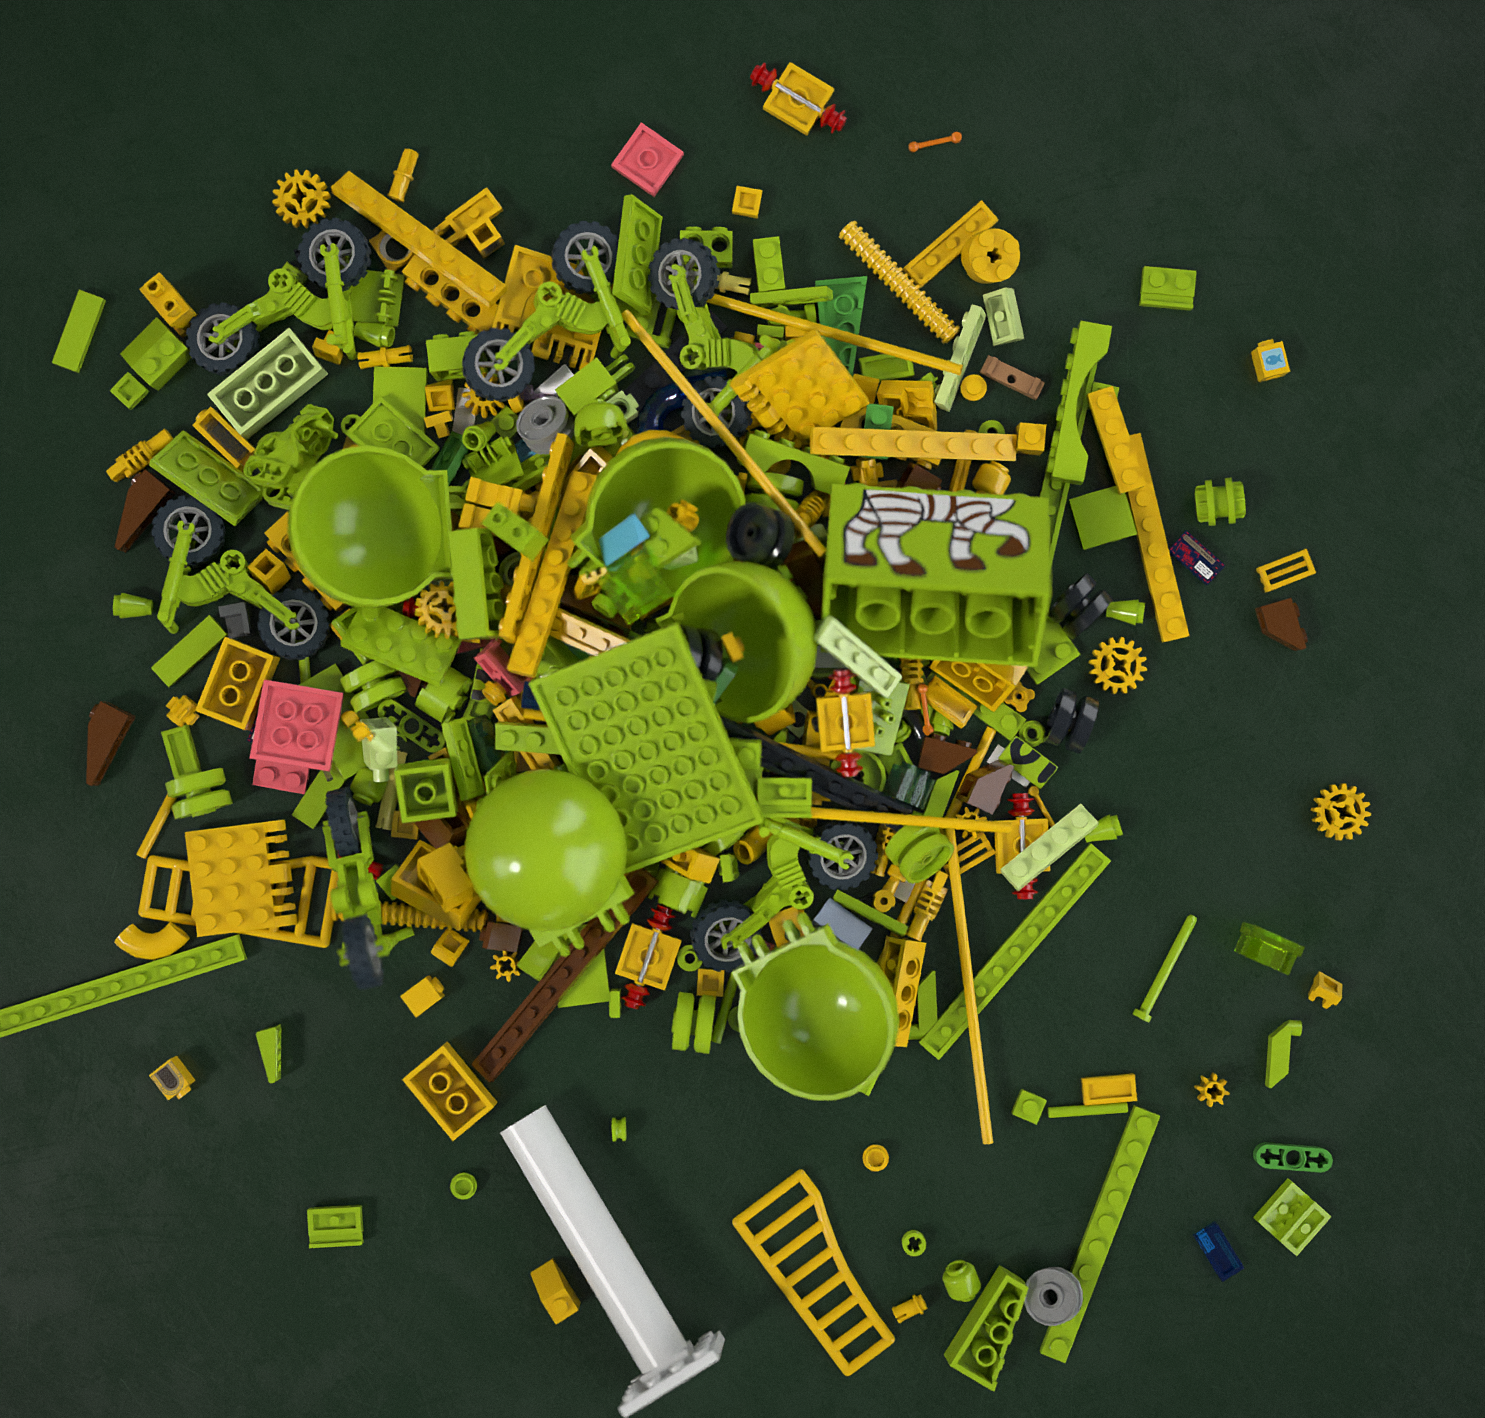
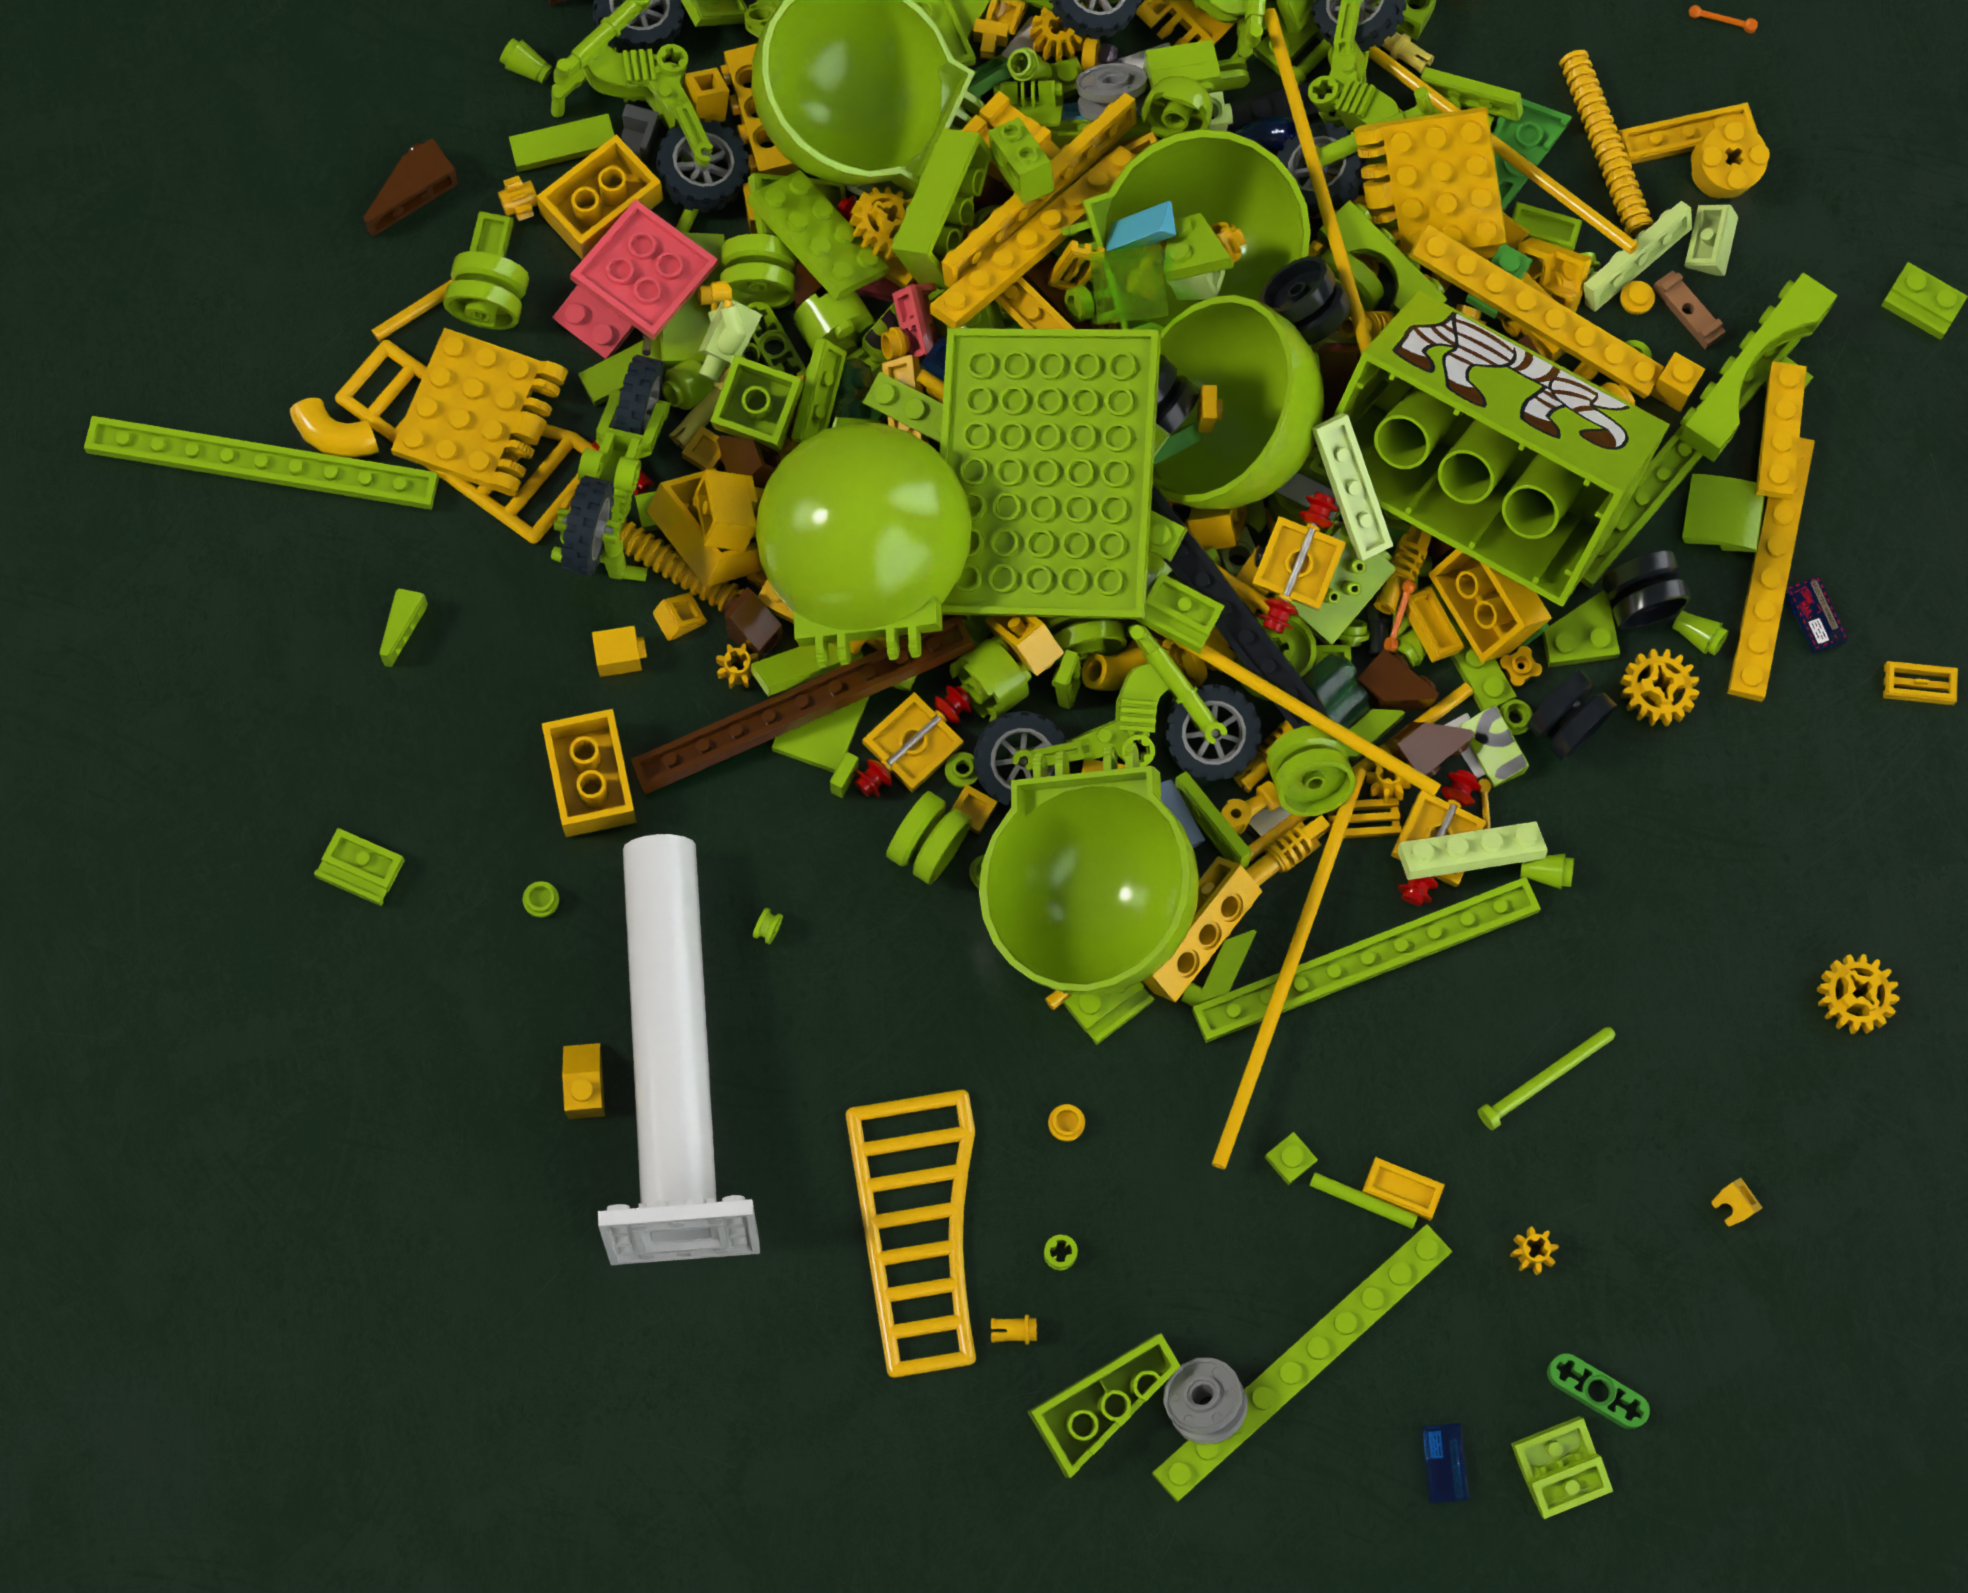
camera: 20 degrees right, 15 degrees down
(173, 1078) = (266, 597): brick -> none
(724, 1009) = (960, 865): lime bar -> none
(768, 264) = (1463, 45): lime brick -> none
(961, 1281) = (1097, 1326): lime head -> none
(1220, 501) = (1875, 559): lime piece -> none
(1267, 948) = (1691, 1103): clear neon green panel -> none
(1279, 1051) = (1644, 1248): lime piece -> none
(1282, 624) = (1885, 737): reddish brown slope -> none

